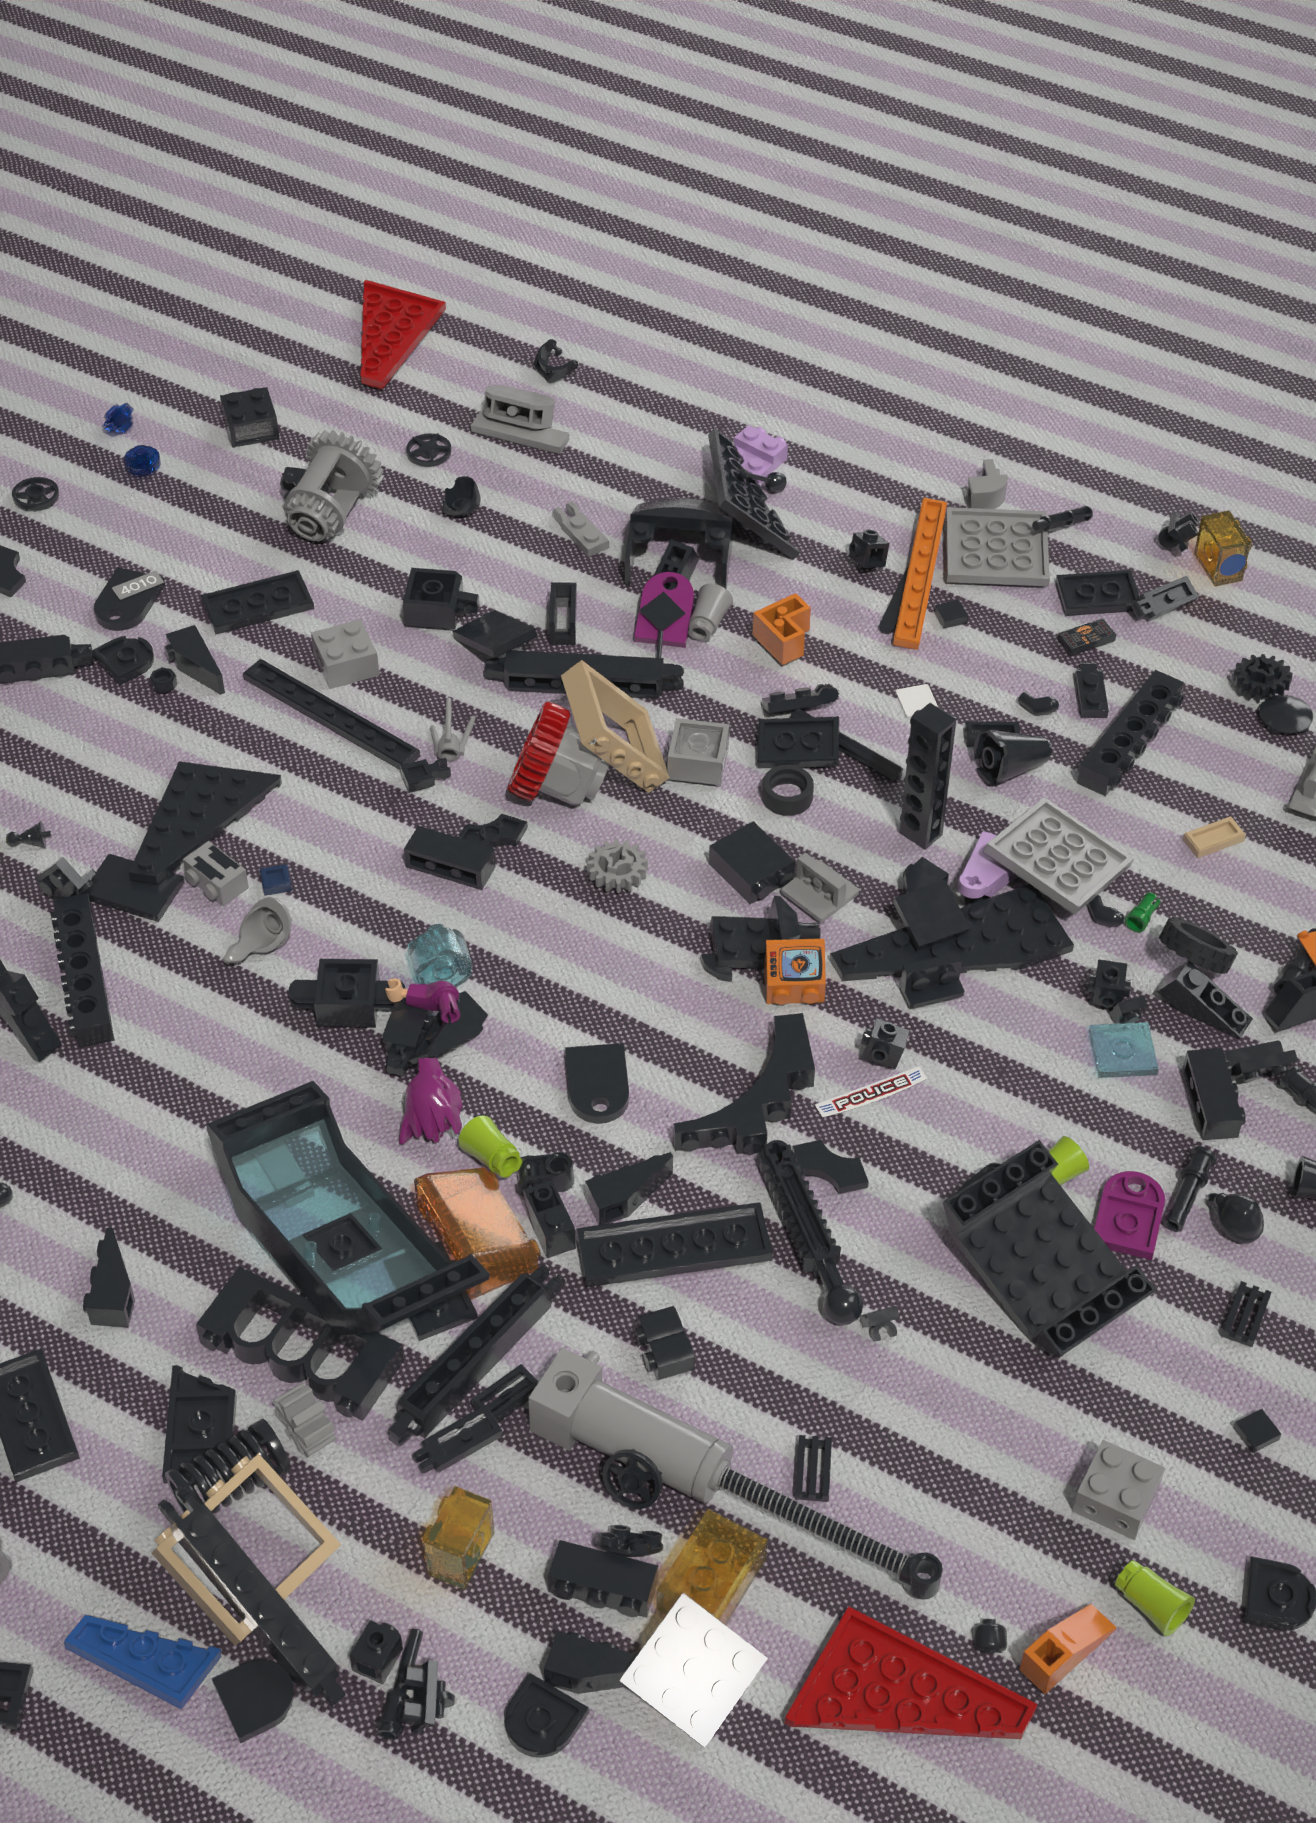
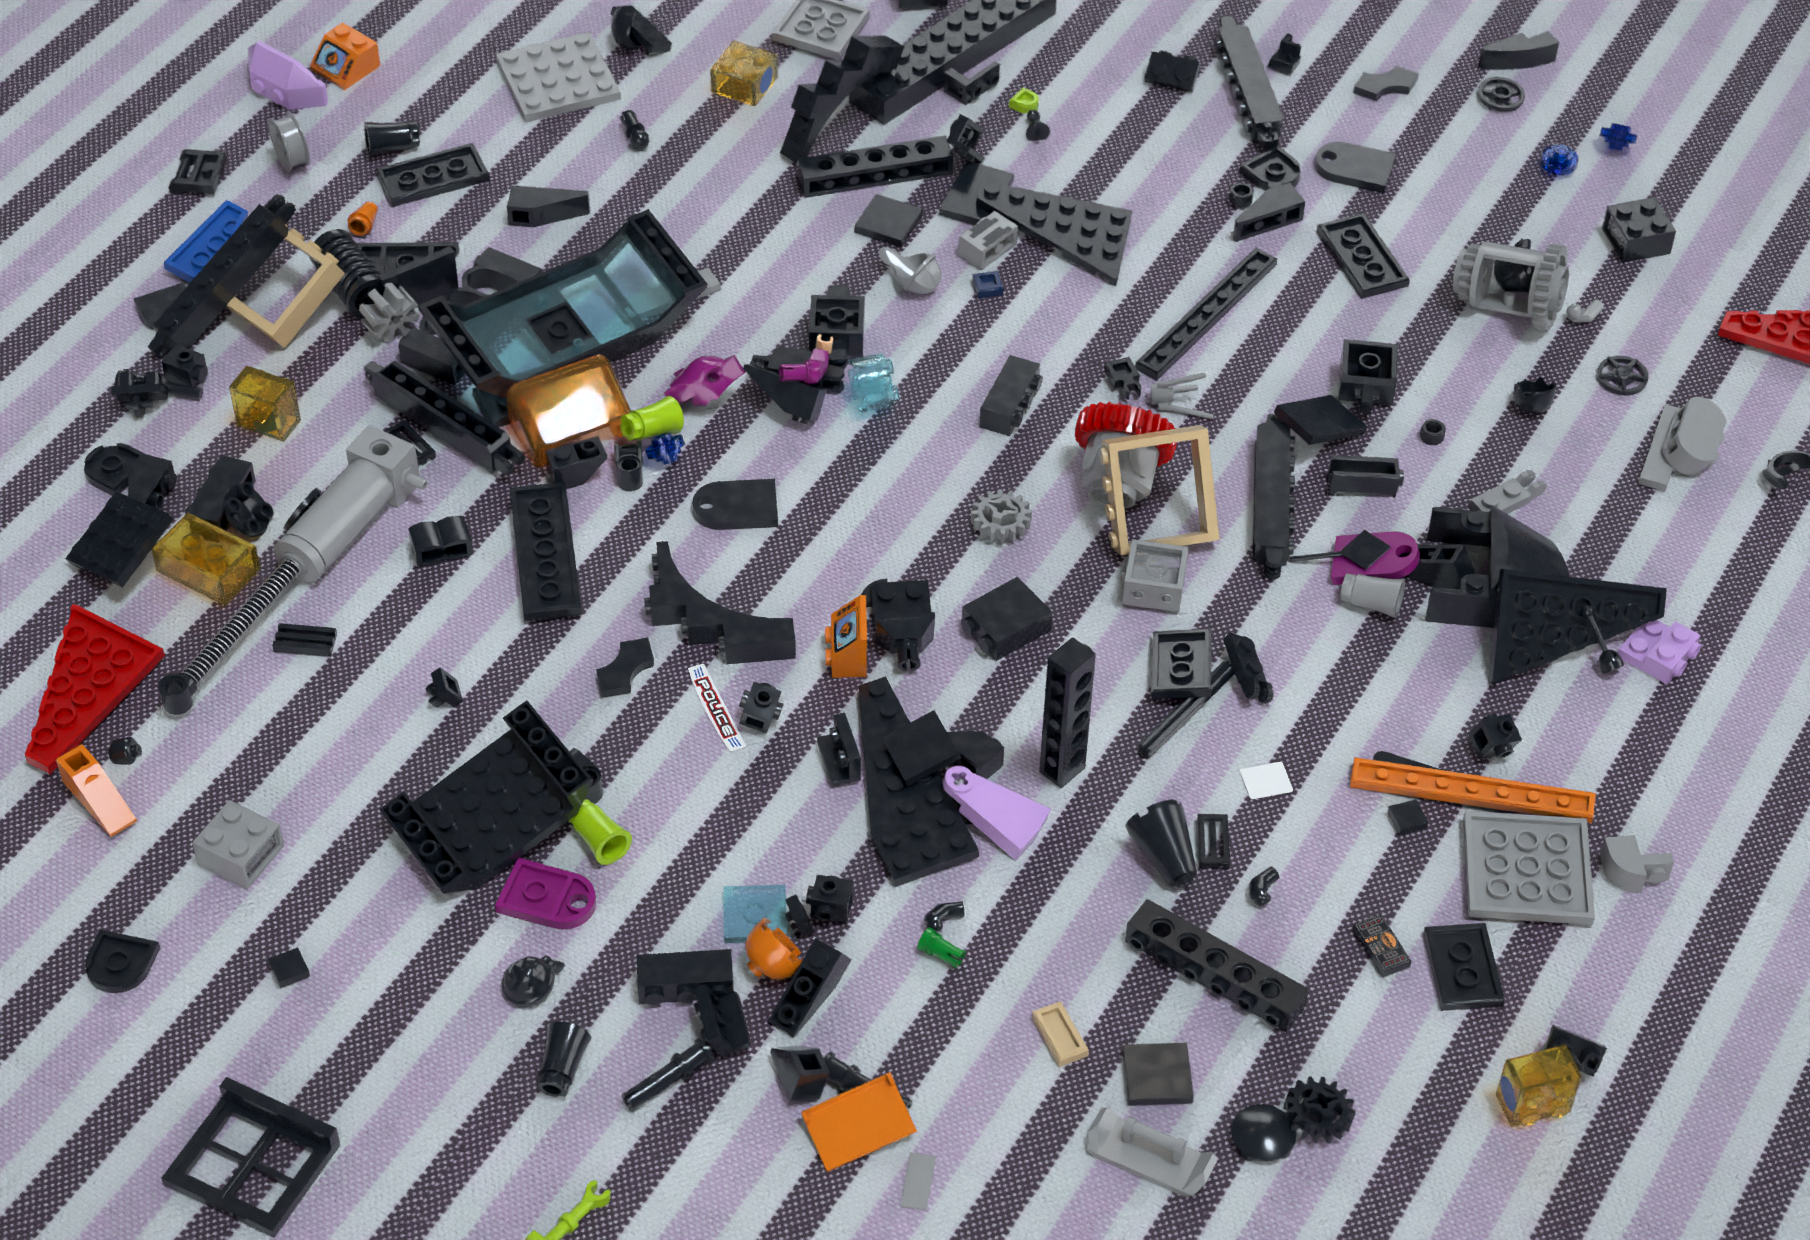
camera: 90 degrees right, 0 degrees up
(110, 1479) = (362, 219): none -> orange cone
(137, 585) = (1370, 168): light grey sticker -> none
(167, 961) = (888, 220): none -> black tile
(252, 1387) = (424, 277): none -> black tile
(345, 654) = (1283, 313): light grey brick -> none
(458, 1440) = (364, 410): black hinge -> none
(500, 575) = (1429, 426): none -> black axle
(502, 831) = (1051, 436): black tile -> none
(526, 1136) = (665, 448): none -> clear blue plate
(624, 1190) = (604, 516): black slope -> none
(783, 627) = (1351, 647): orange brick -> none
(787, 775) = (1117, 637): black tyre -> none
(804, 1219) = (549, 640): black gear -> none
(818, 888) = (974, 673): light grey bracket -> none
(1059, 855) = (1008, 866): light grey plate -> none
(1063, 518) = (1582, 933): black piece -> none
(1091, 691) = (1291, 940): black hinge -> none
(1155, 1597) = (128, 859): lime plant -> none
(1165, 599) = (1451, 1026): hinge -> none
(1180, 1024) = (771, 952): none -> orange cylinder
(1193, 1178) = (581, 949): black pin -> none
(1198, 945) = (901, 967): black tyre -> none
(1242, 776) = (1157, 1074): none -> black tile
(1252, 1293) = (422, 972): black tile -> none

